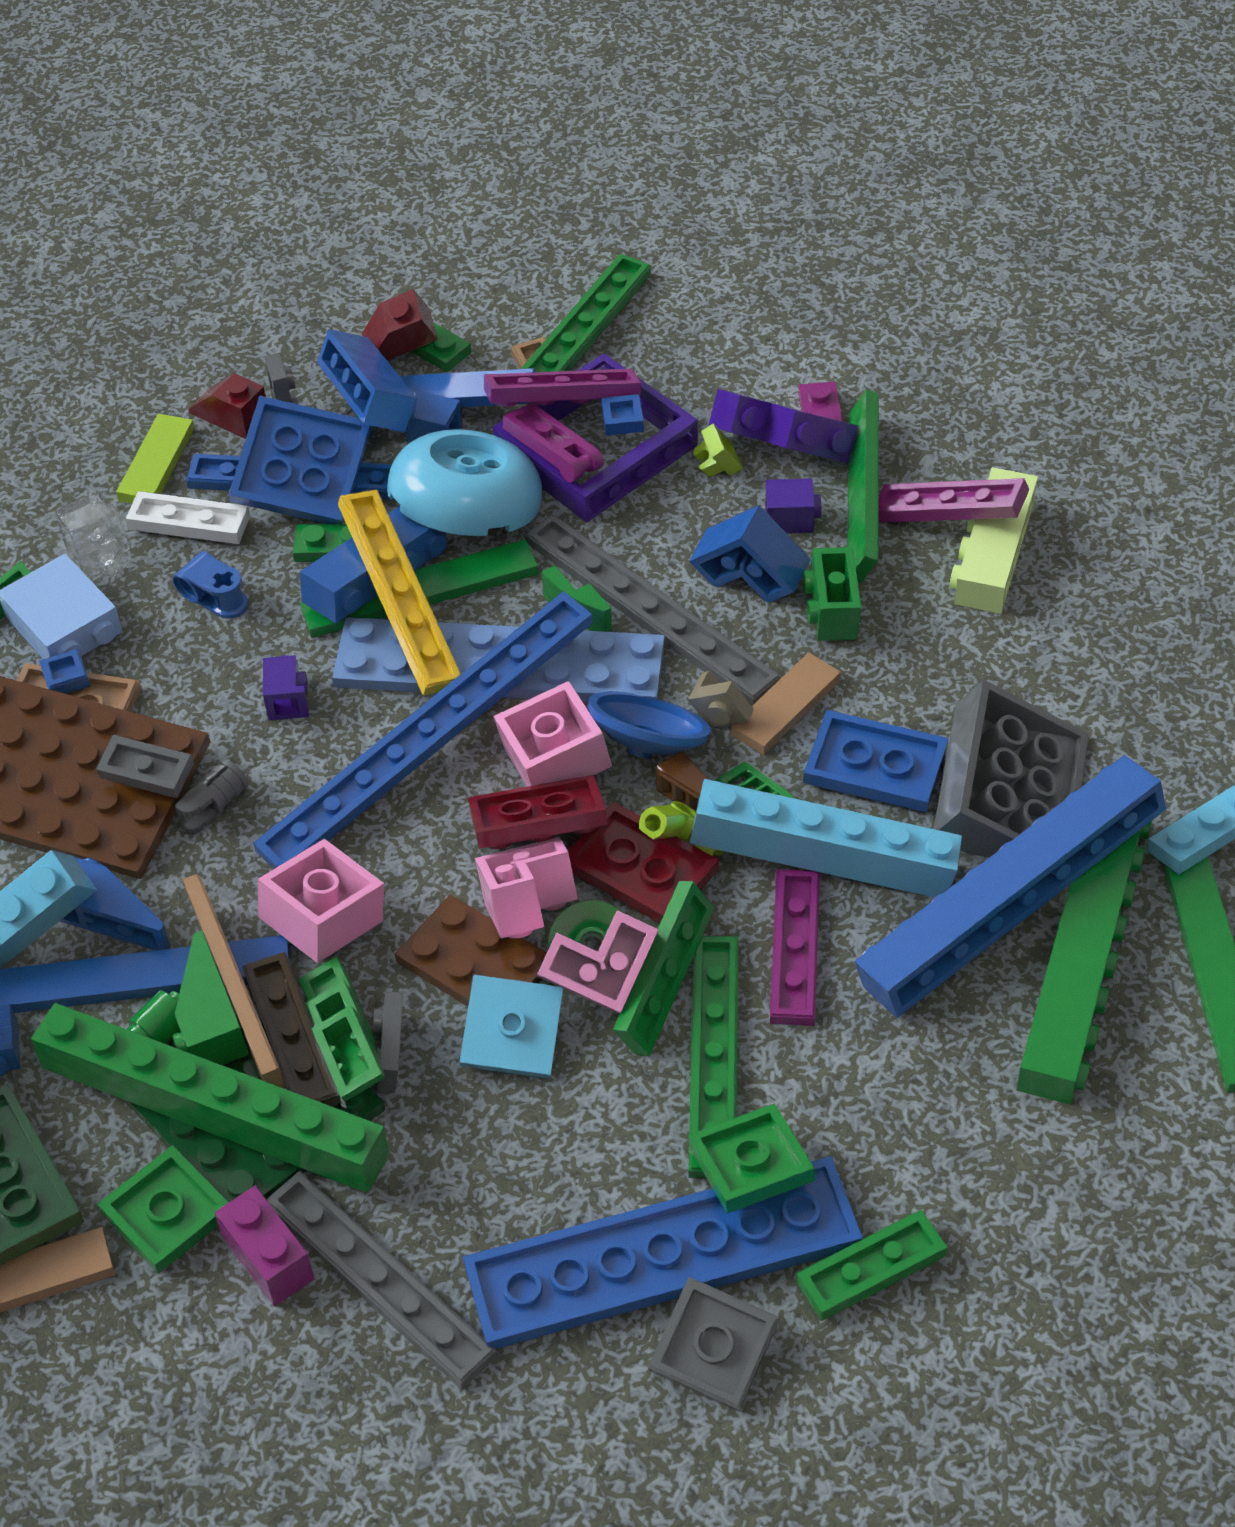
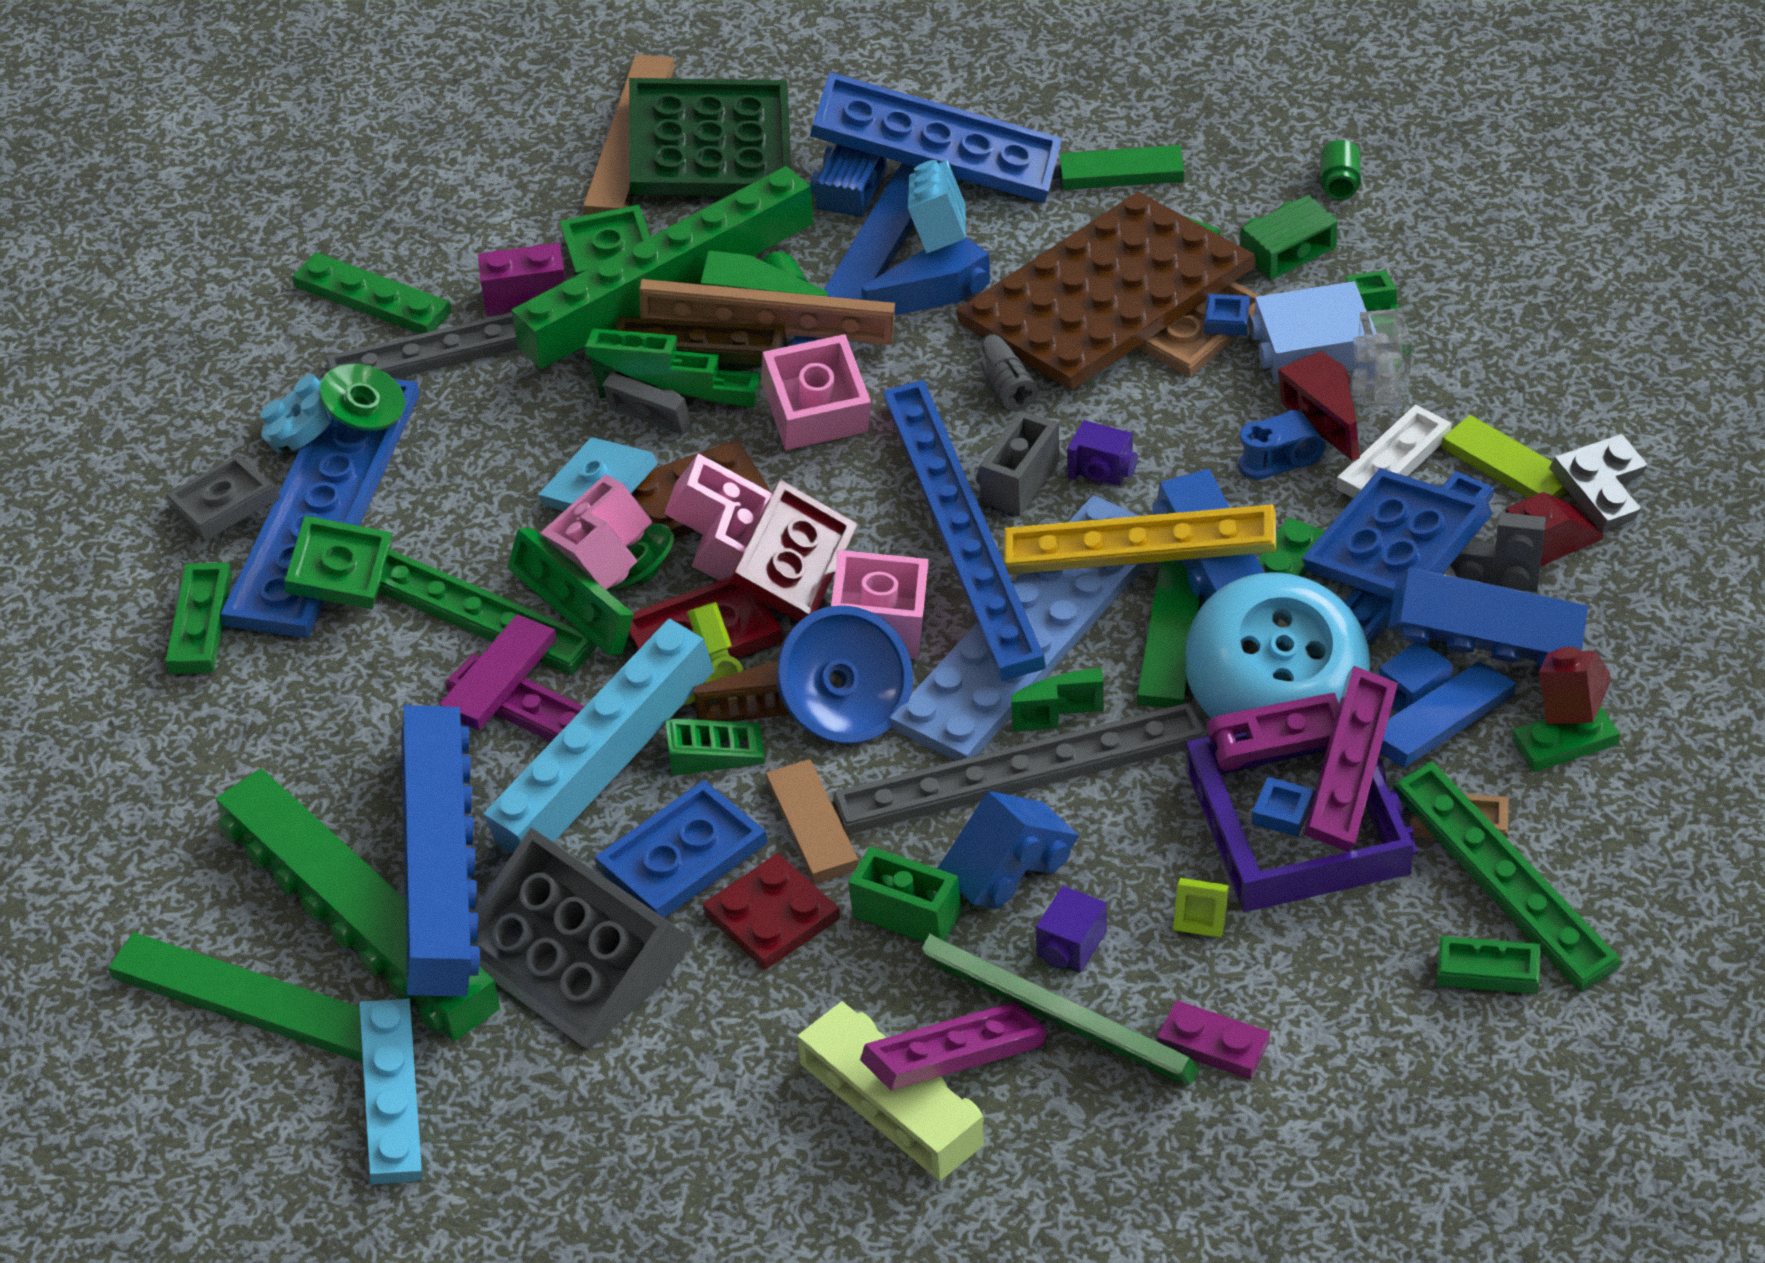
camera: 120 degrees right, 5 degrees down
(145, 569) = (1322, 393): none -> dark red slope
(145, 766) = (1044, 313): dark grey plate -> none
(156, 402) = (1595, 479): none -> plate
(331, 722) = (1019, 463): none -> dark grey brick
(337, 1408) = (371, 294): none -> green plate
(533, 1260) = (362, 397): none -> green dish
(541, 1336) = (296, 417): none -> medium azure plate
(666, 308) = (1488, 964): none -> green plate
(719, 702) = (839, 748): dark tan bracket -> none
(783, 426) = (1170, 967): dark purple arch -> none
(787, 971) = (499, 670): none -> magenta tile
(887, 686) = (771, 911): none -> dark red plate

